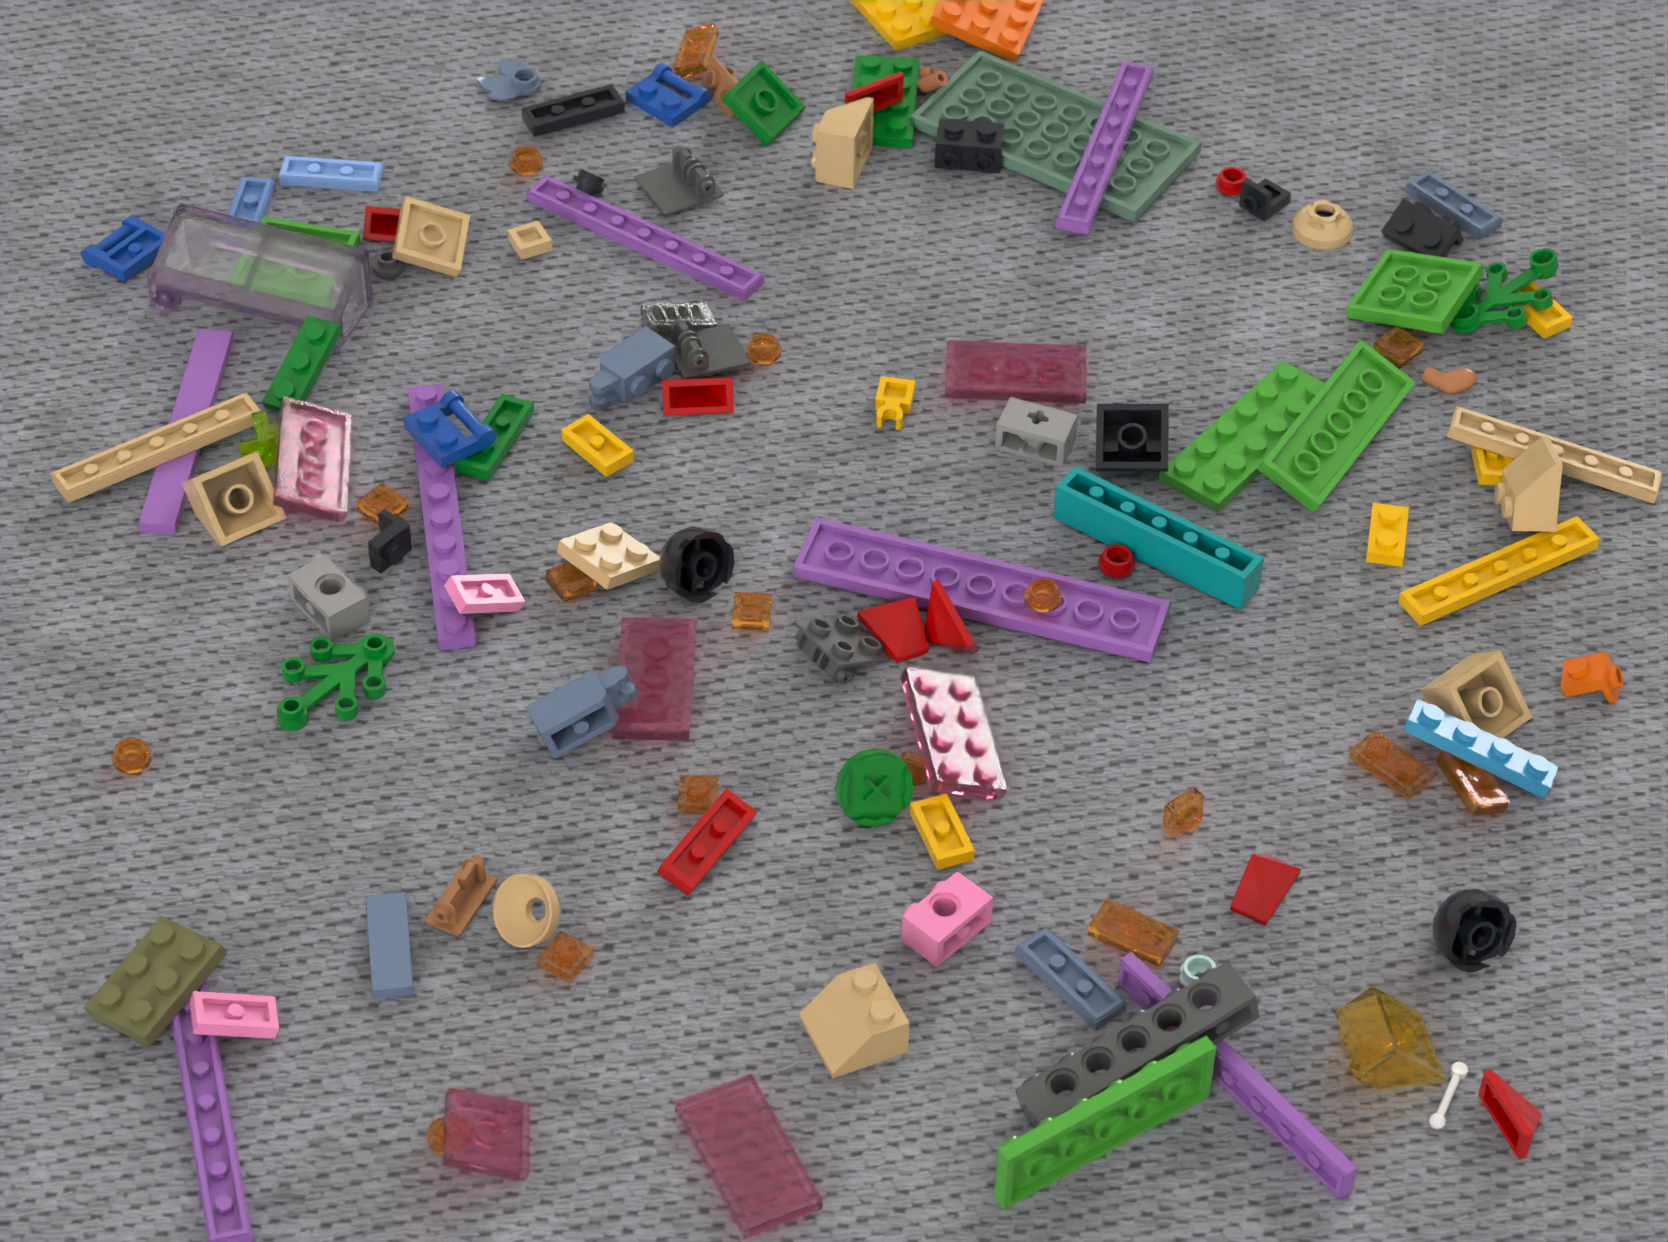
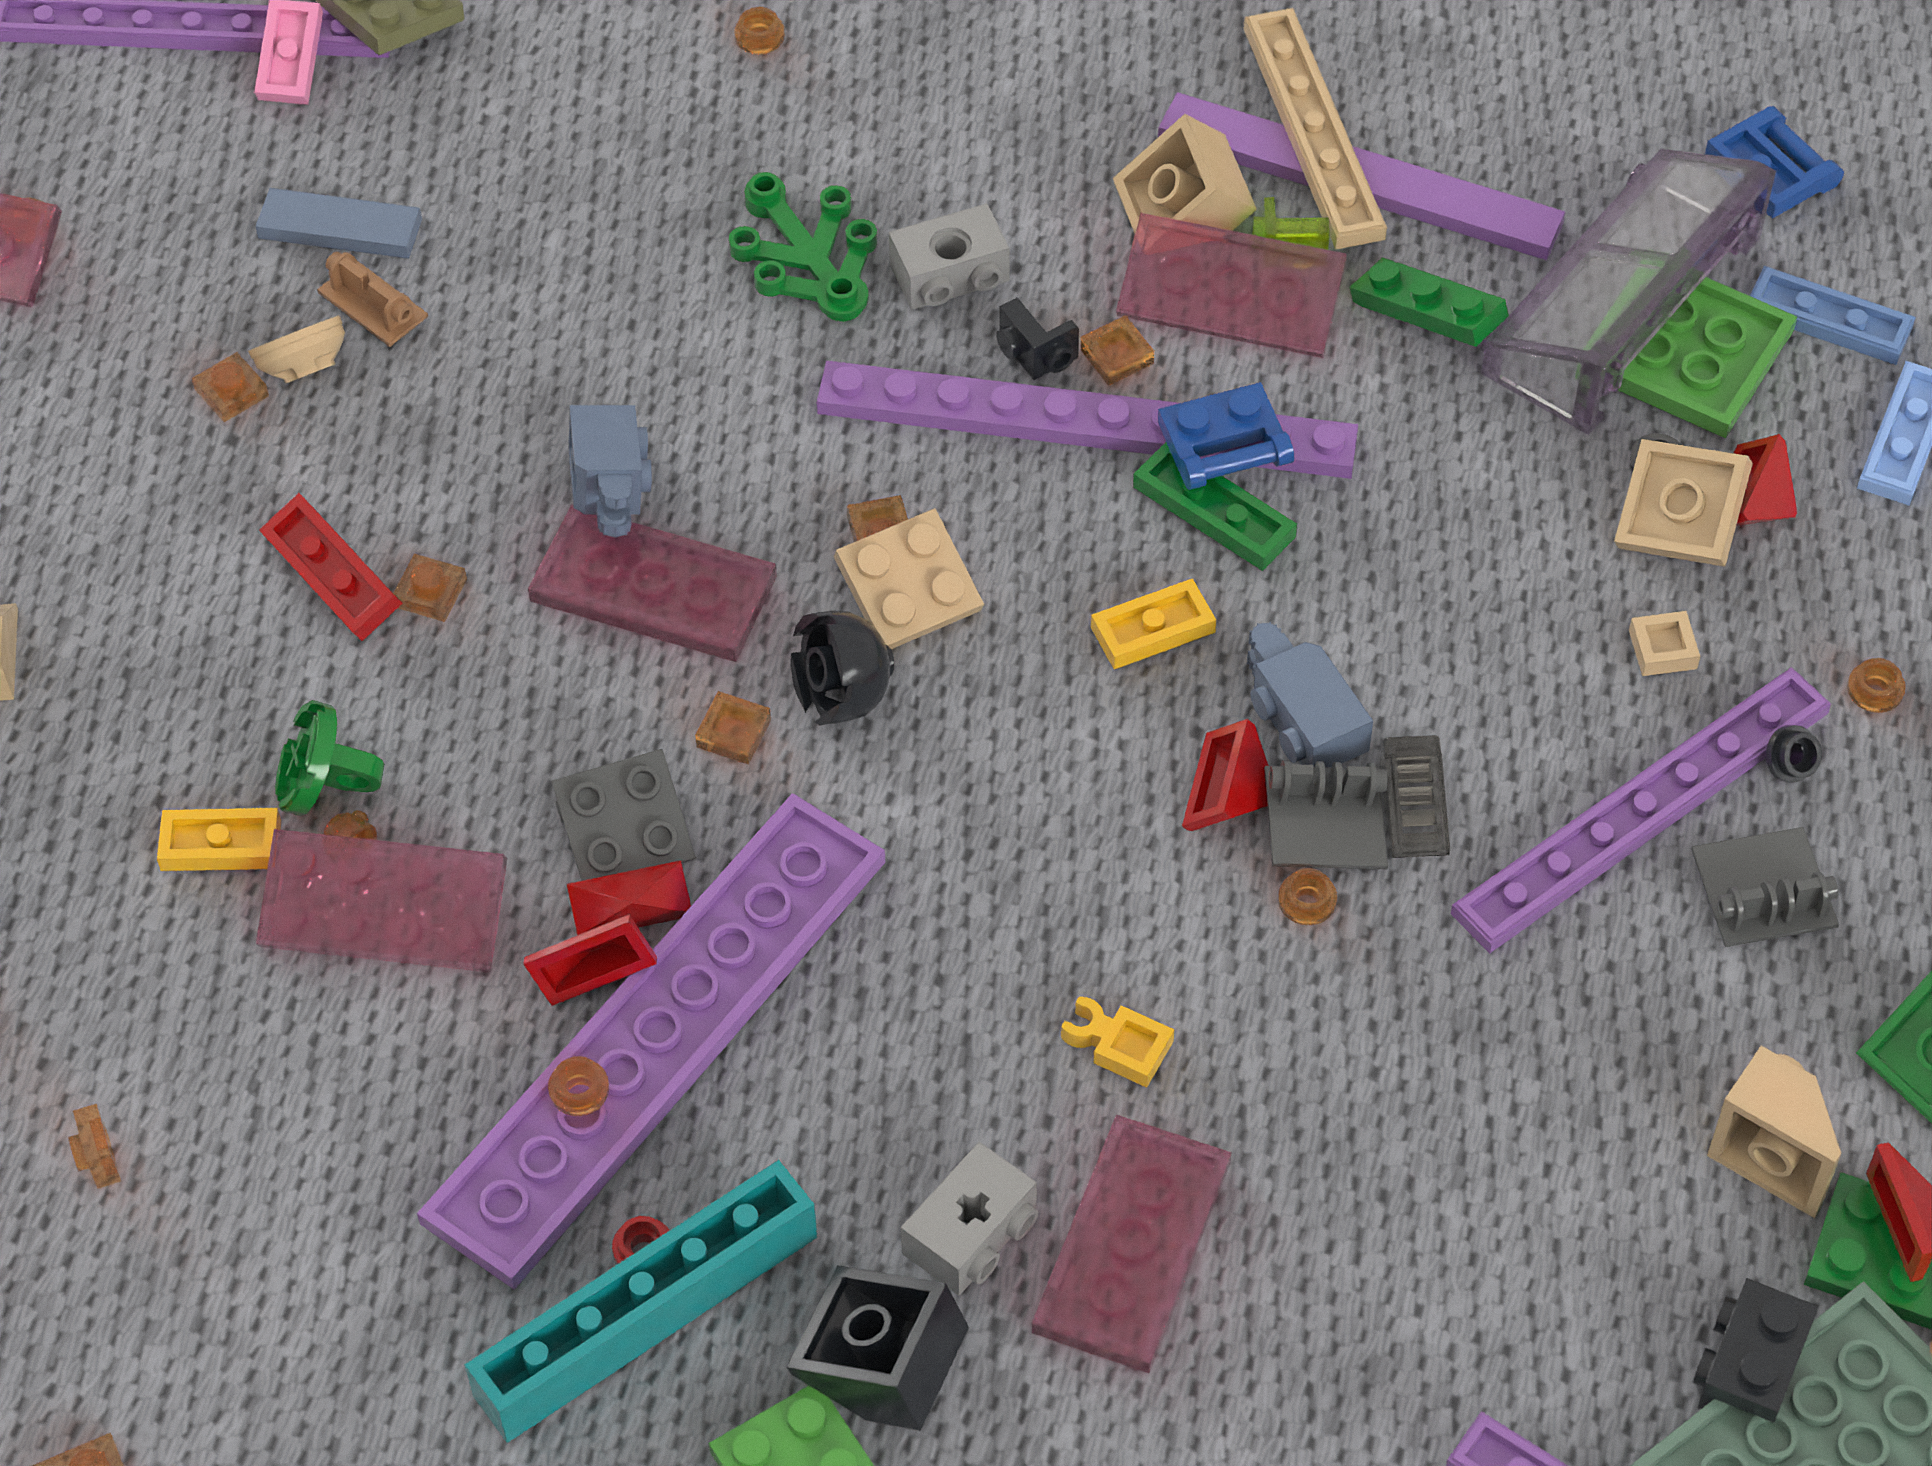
camera: 110 degrees right, 10 degrees up
(484, 593) = (878, 414): bright pink plate -> none
(946, 918) = (72, 821): bright pink brick -> none

